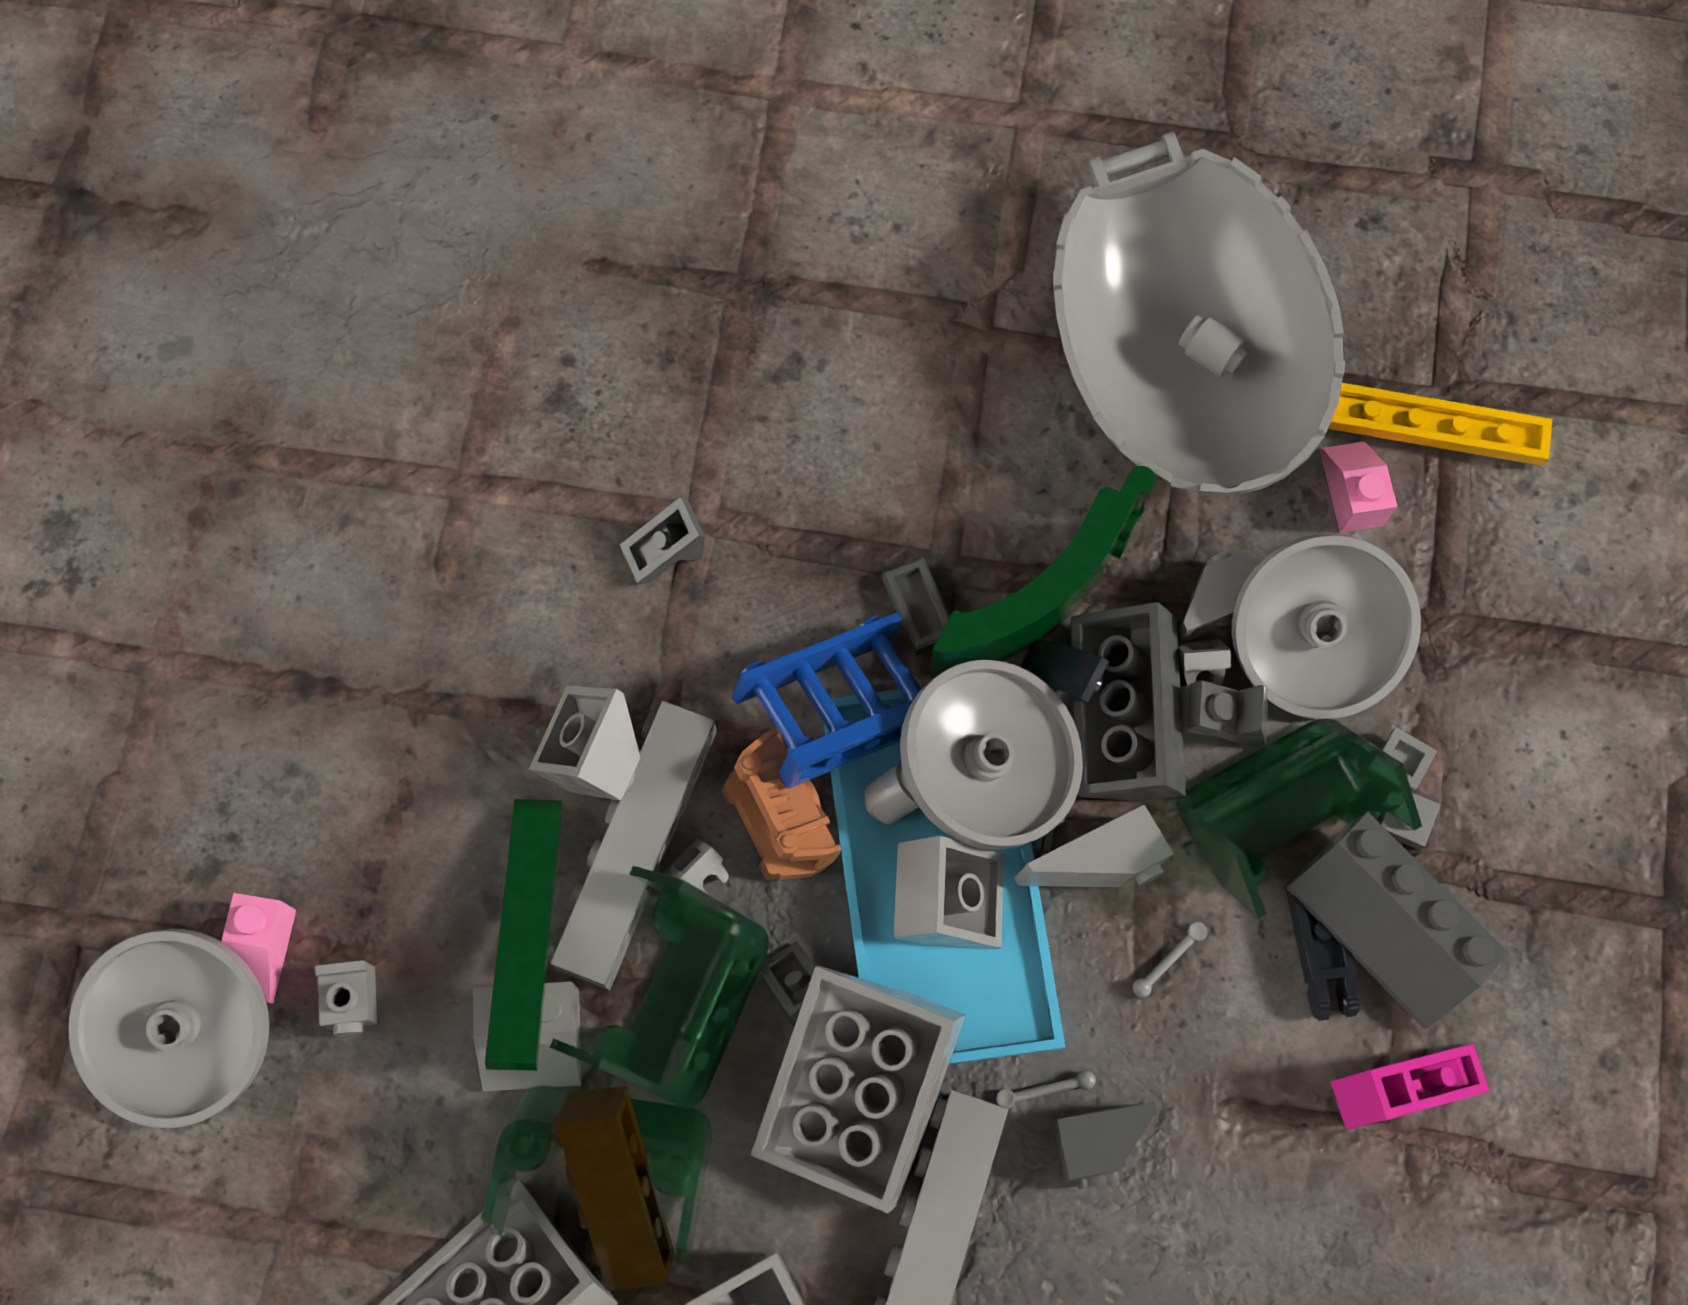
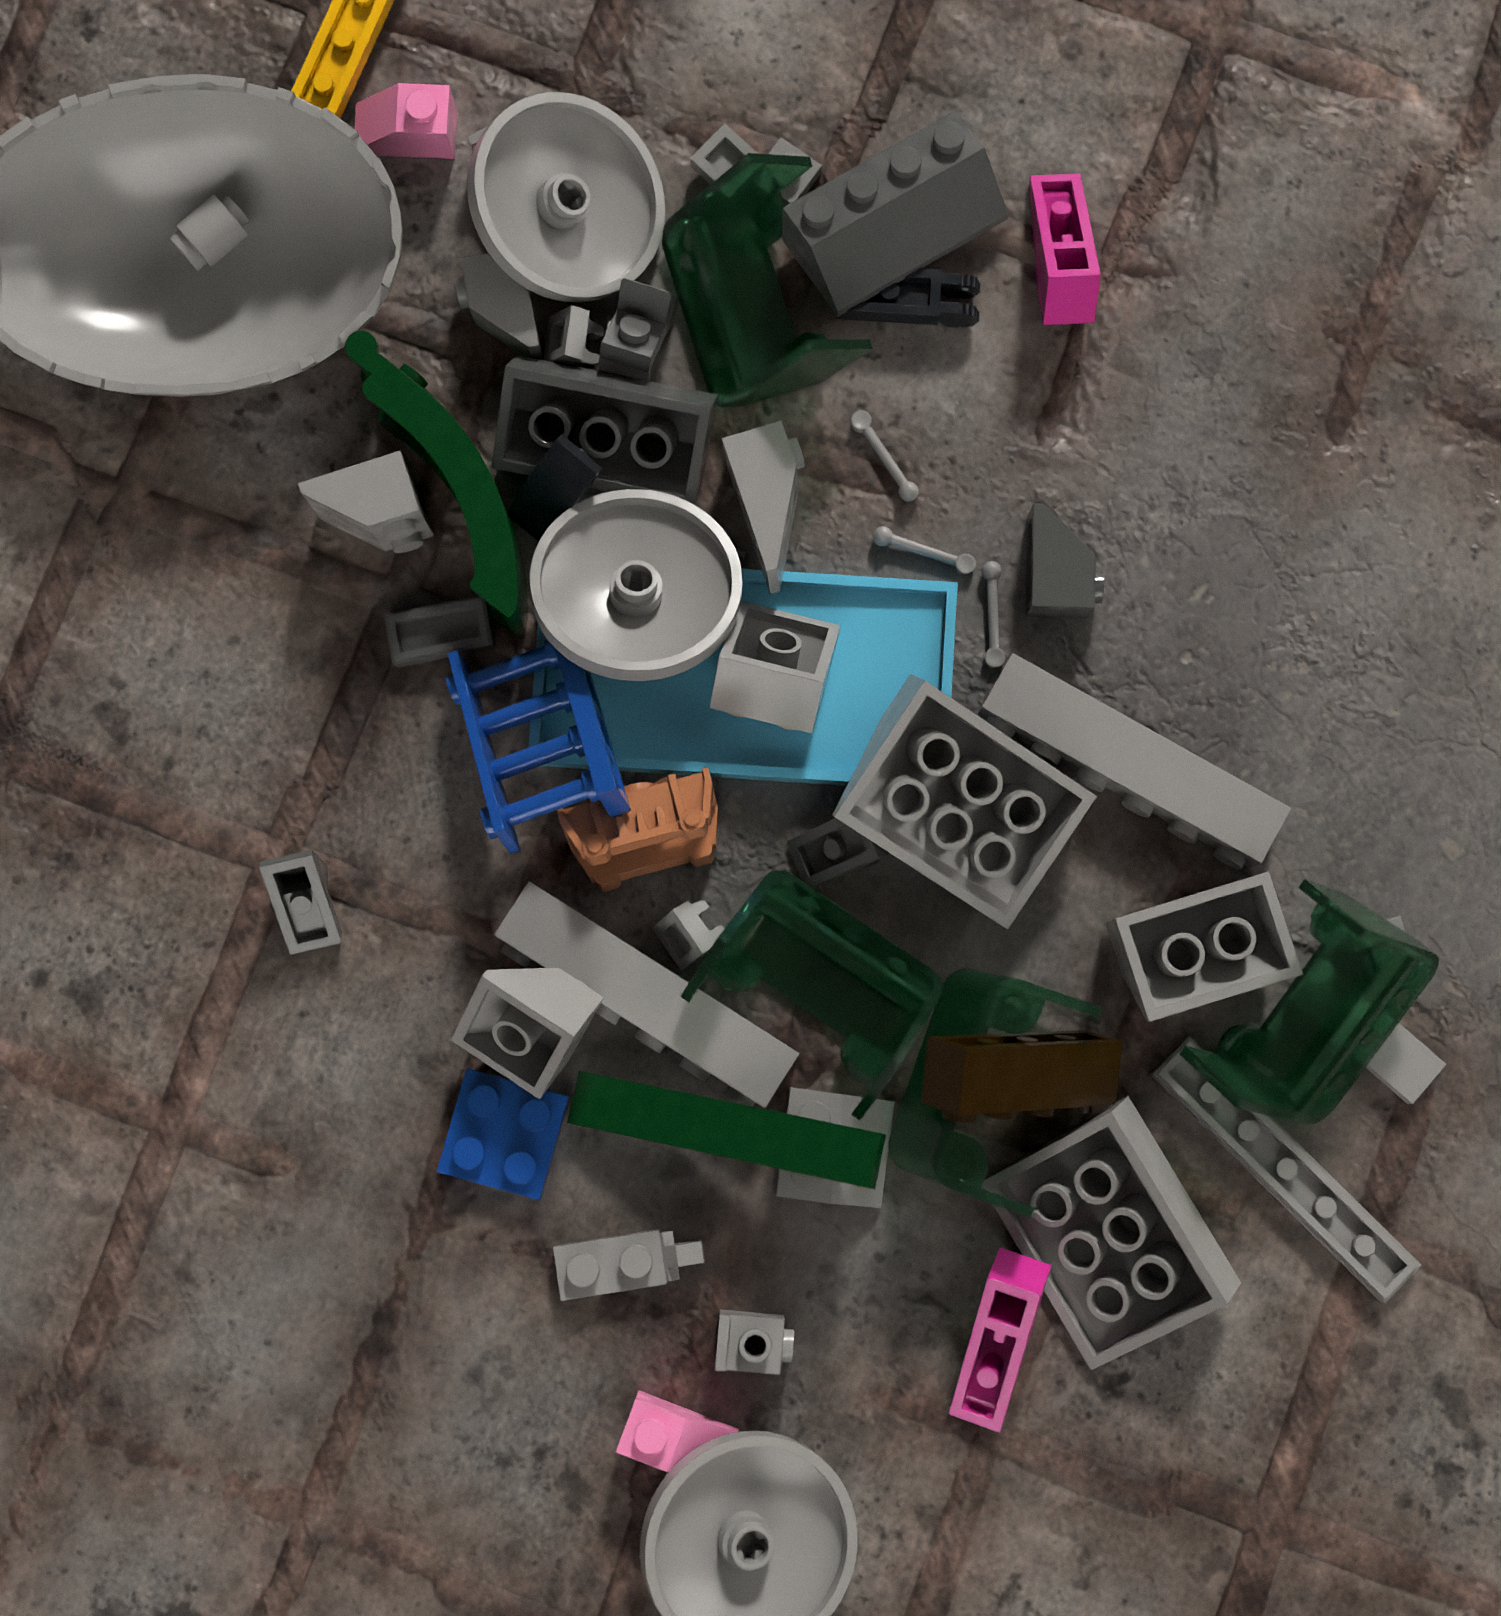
camera: 80 degrees left, 10 degrees up
(380, 1222) = (999, 1339): none -> dark pink slope
(402, 873) = (622, 1263): none -> light grey hinge
(495, 748) = (502, 1135): none -> blue plate
(889, 797) = (655, 705): light grey brick -> none
(1016, 528) = (373, 502): none -> light grey slope
(1087, 1053) = (963, 564): none -> light grey hinge

